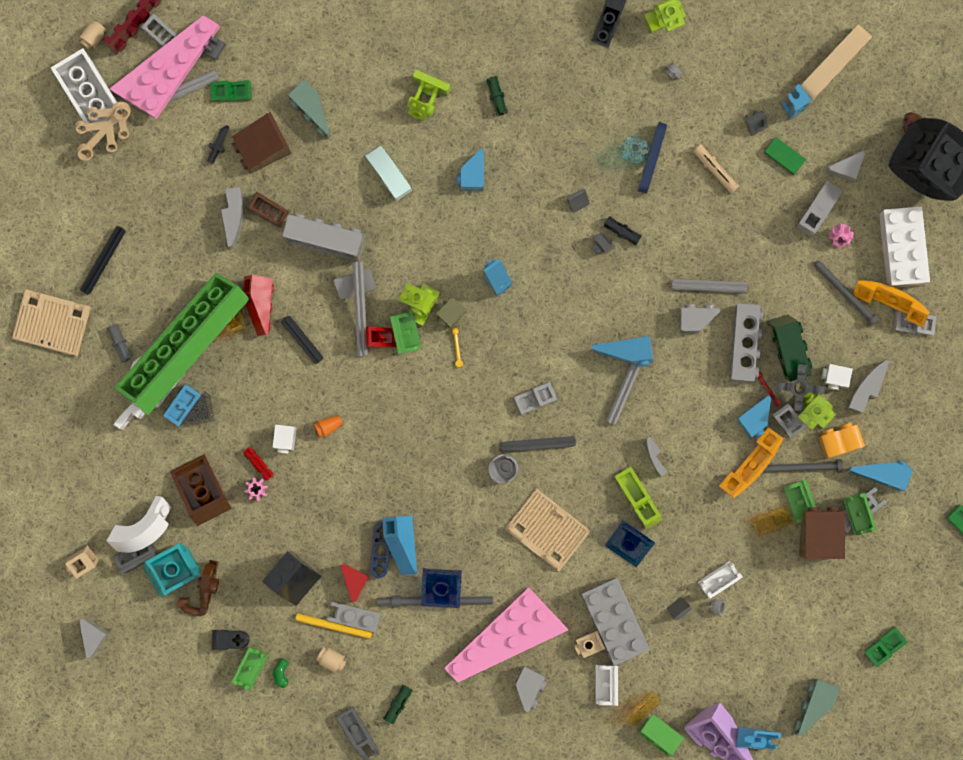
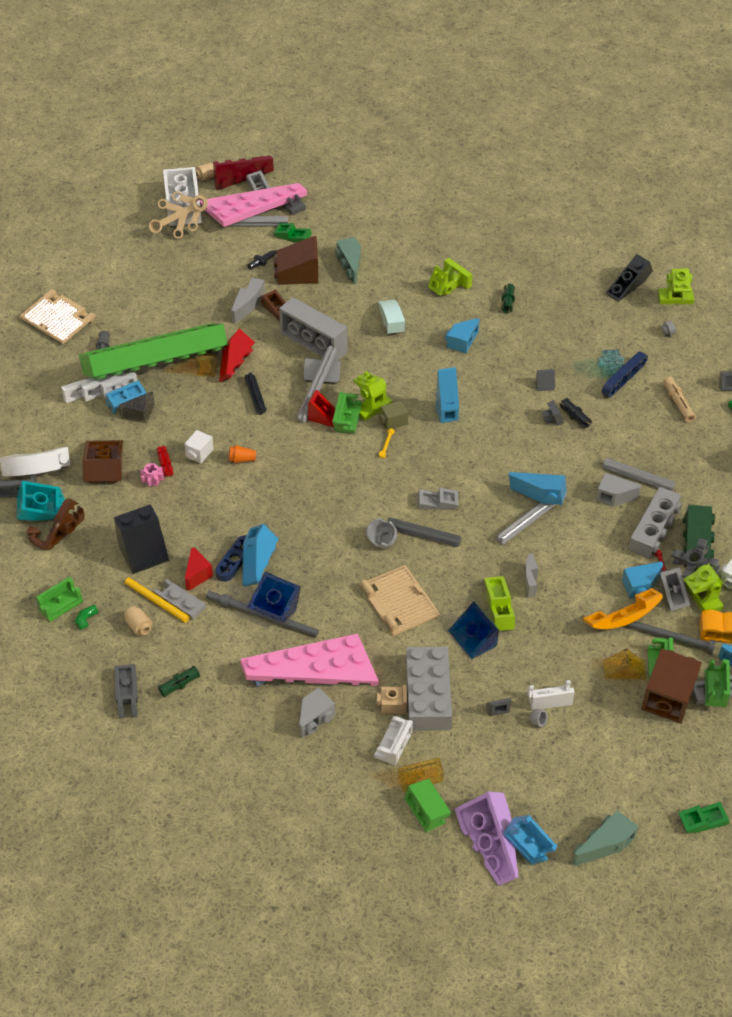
camera: 20 degrees right, 35 degrees down
(102, 260) = (124, 295): black axle -> none
(226, 639) = (54, 571): black piece -> none

